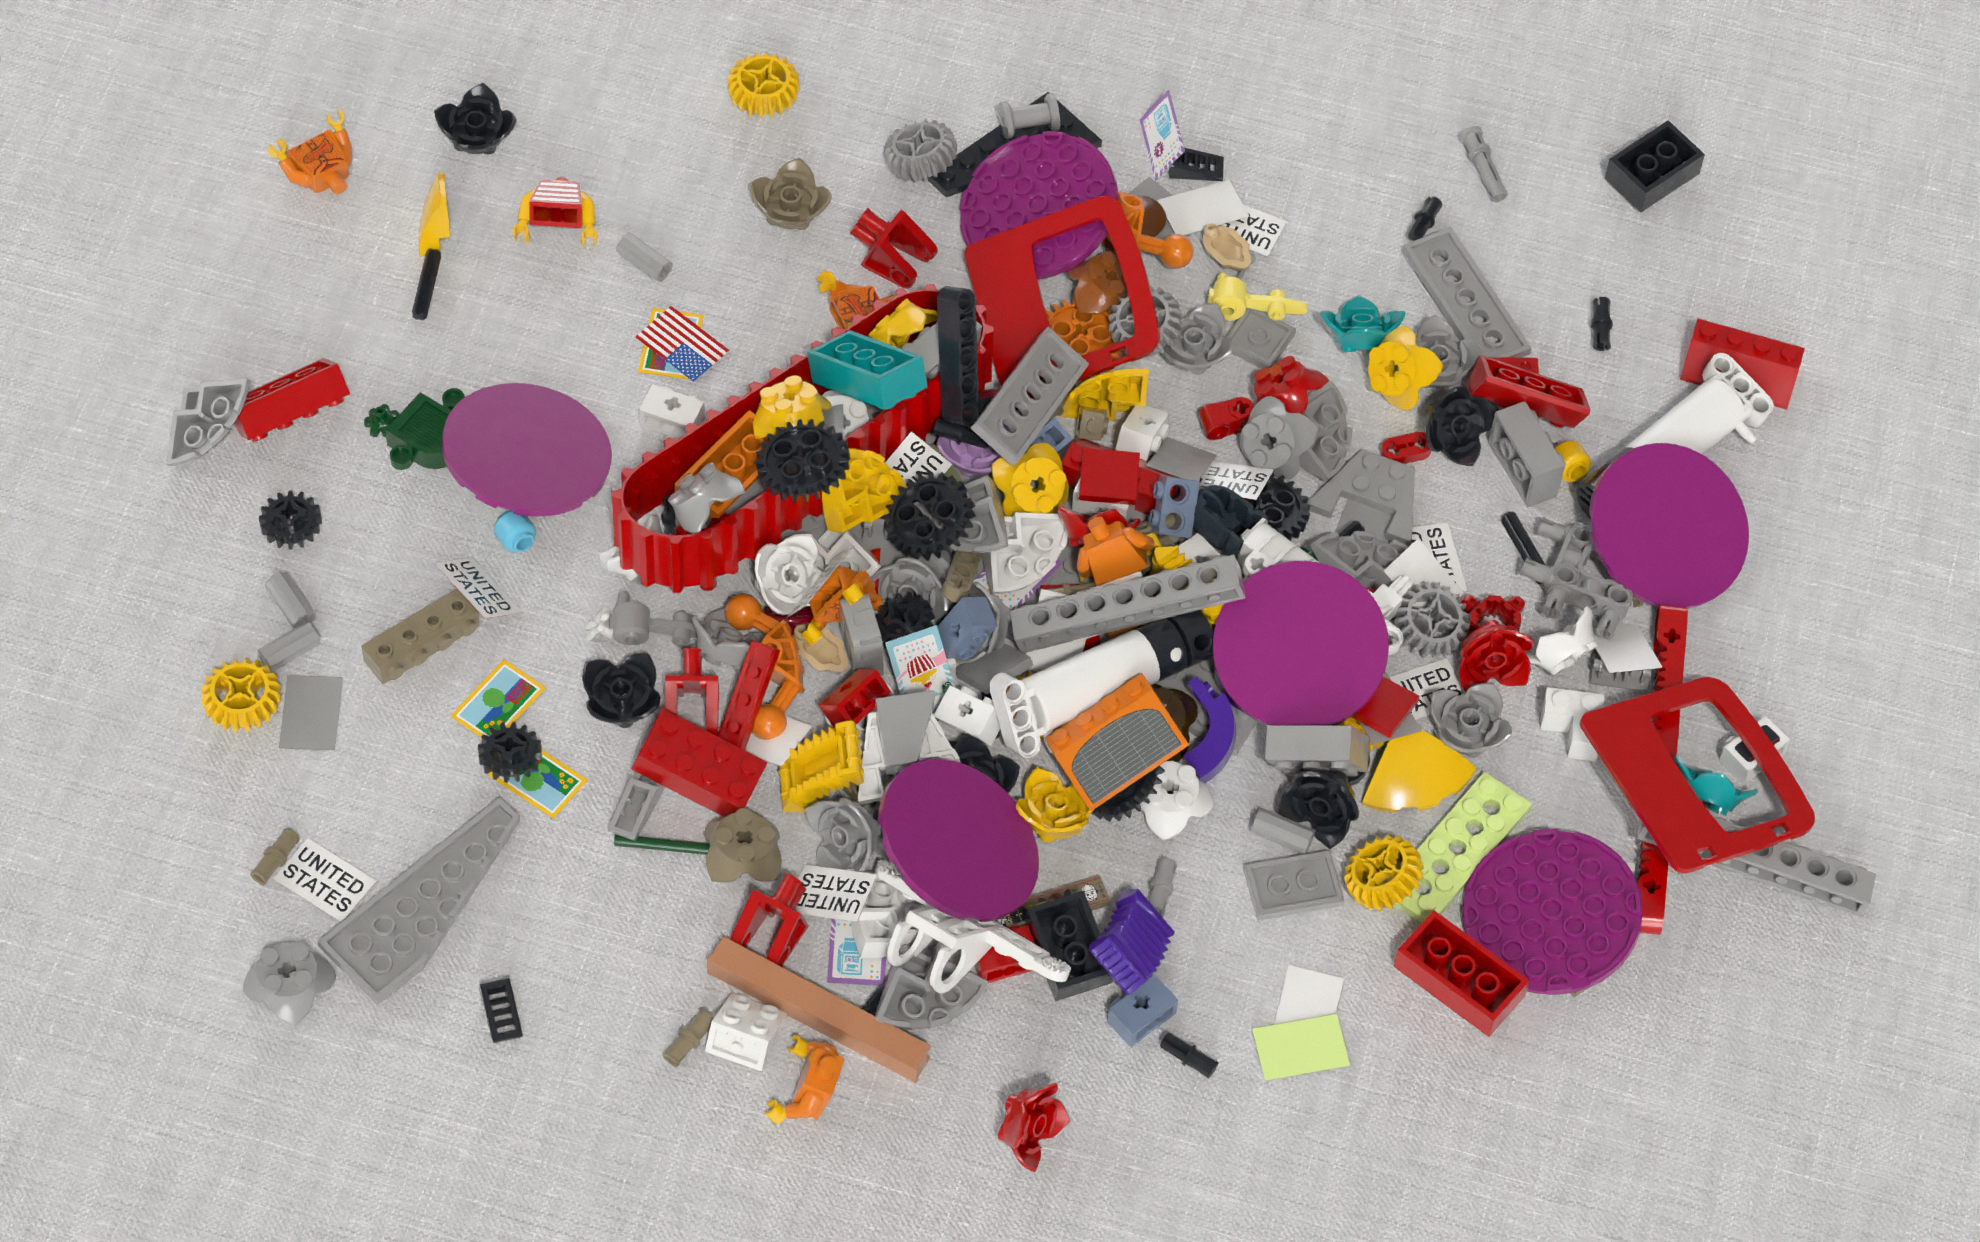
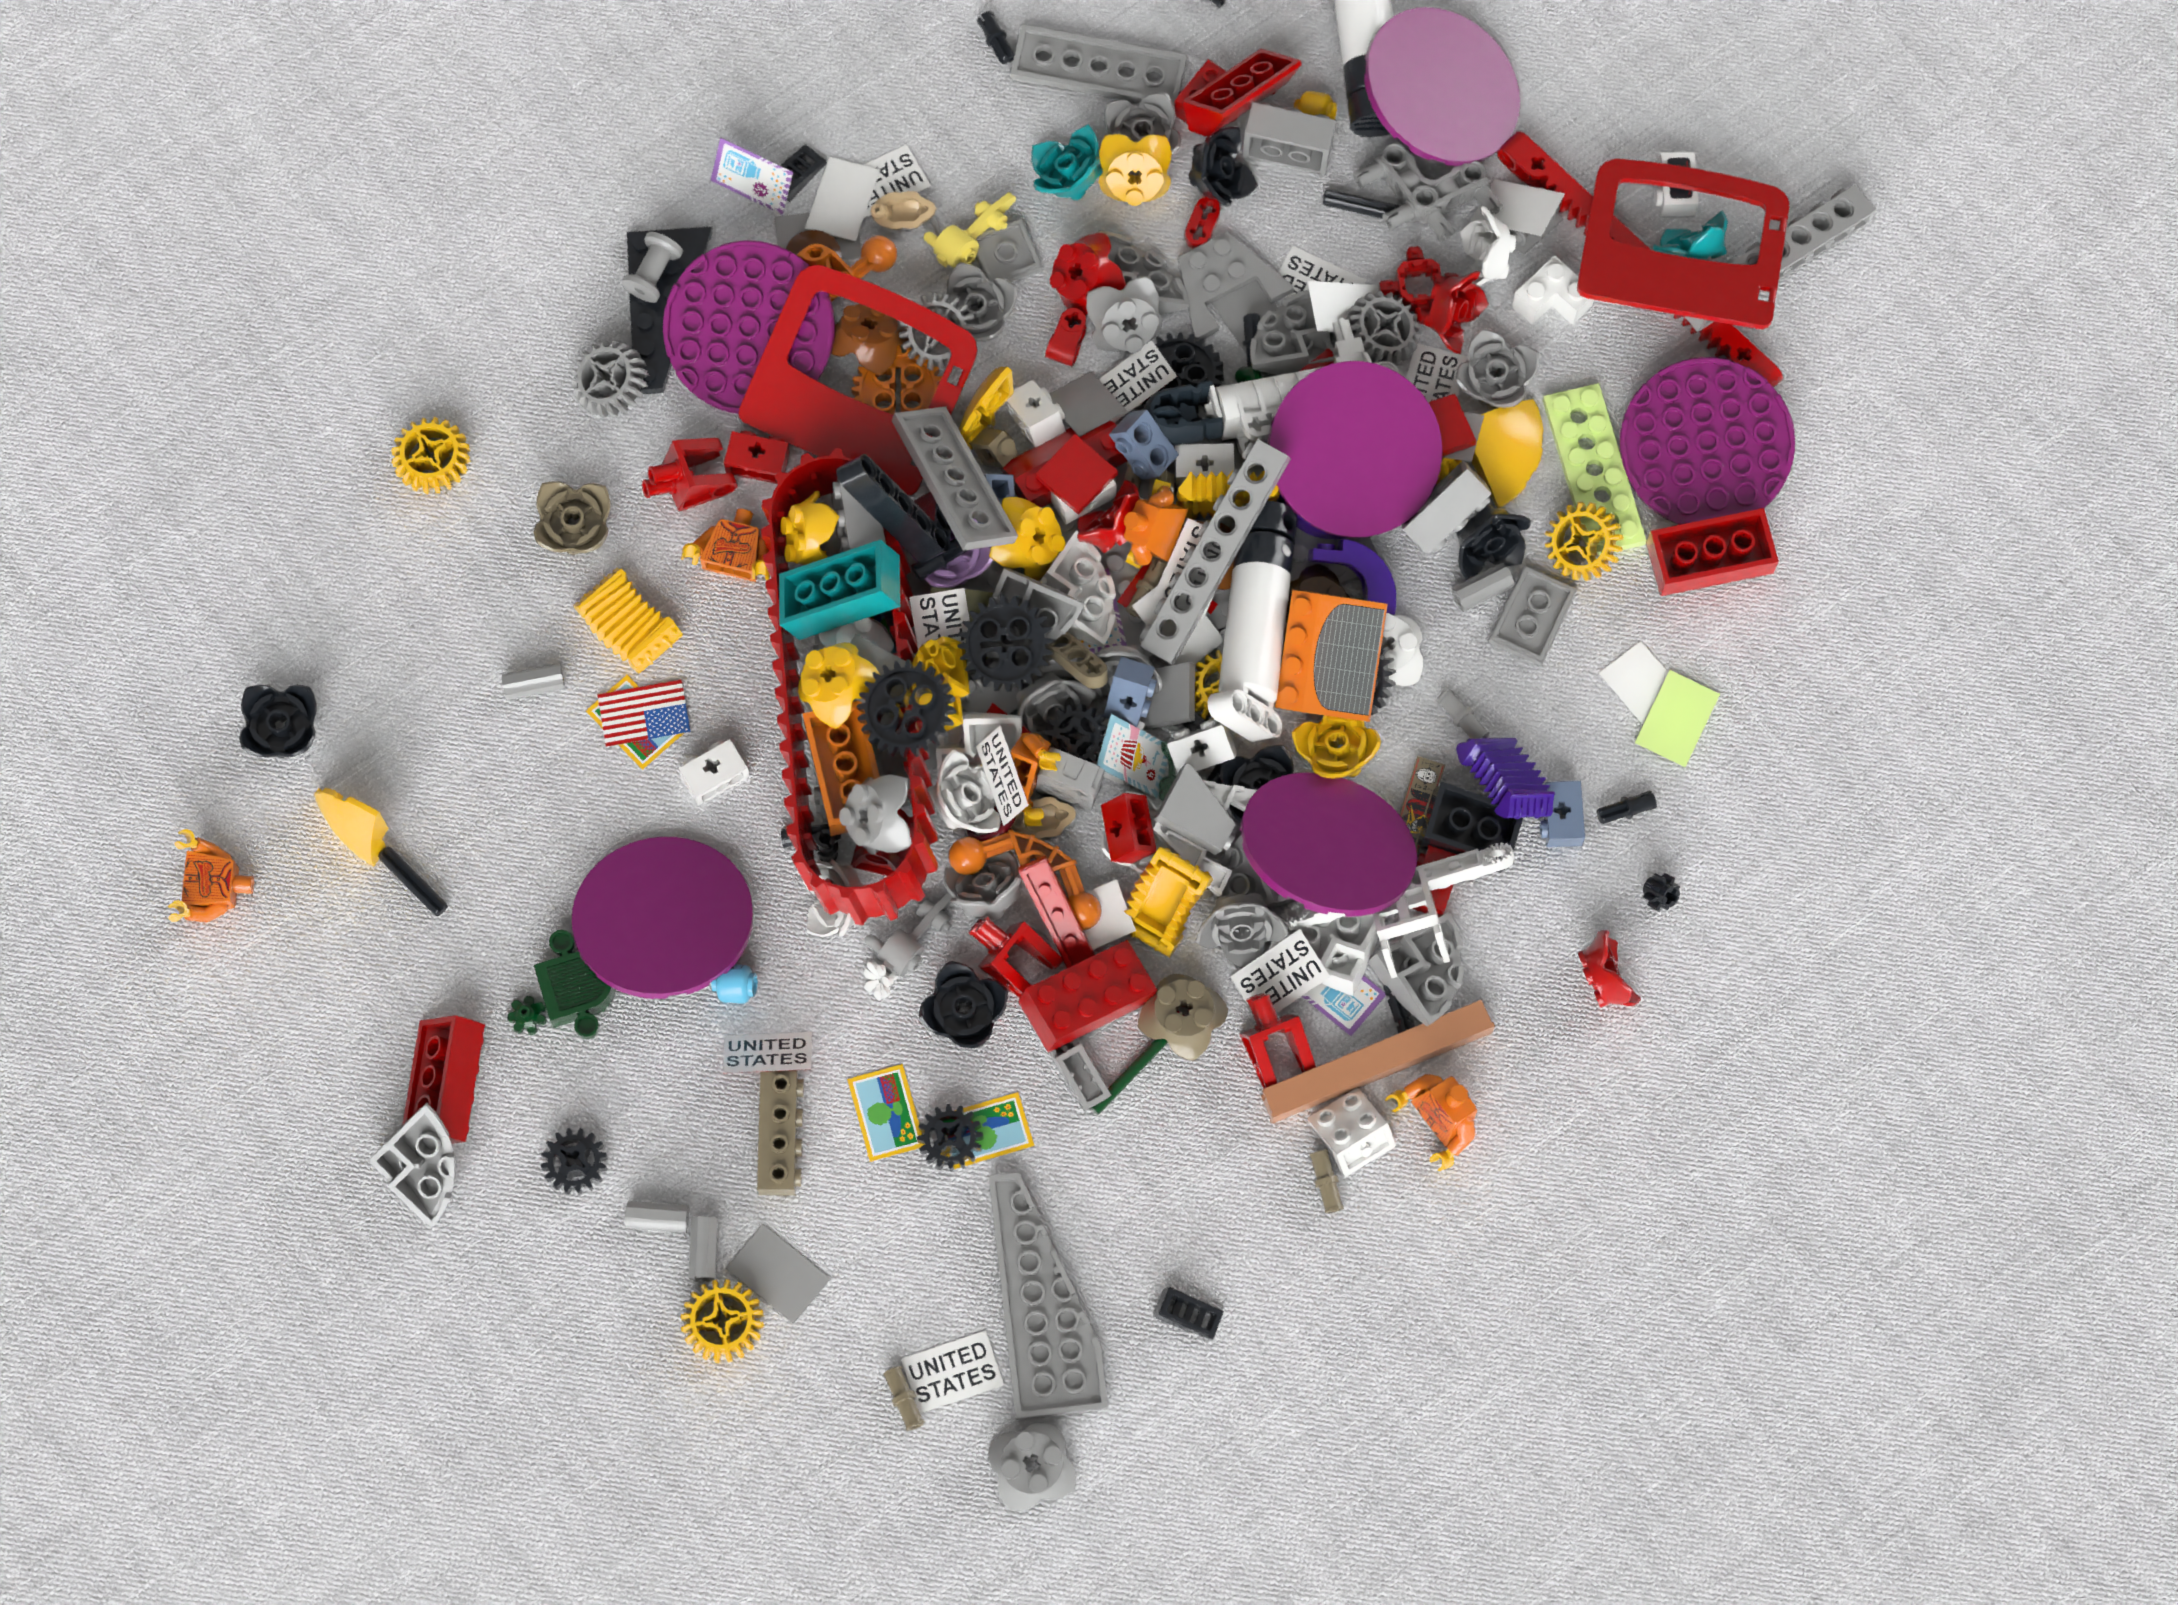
camera: 50 degrees left, 15 degrees up
(557, 205) = (424, 715): torso -> none
(742, 284) = (627, 621): none -> yellow piece
(943, 271) = (745, 446): none -> red brick
(1130, 1125) = (1661, 891): none -> black gear

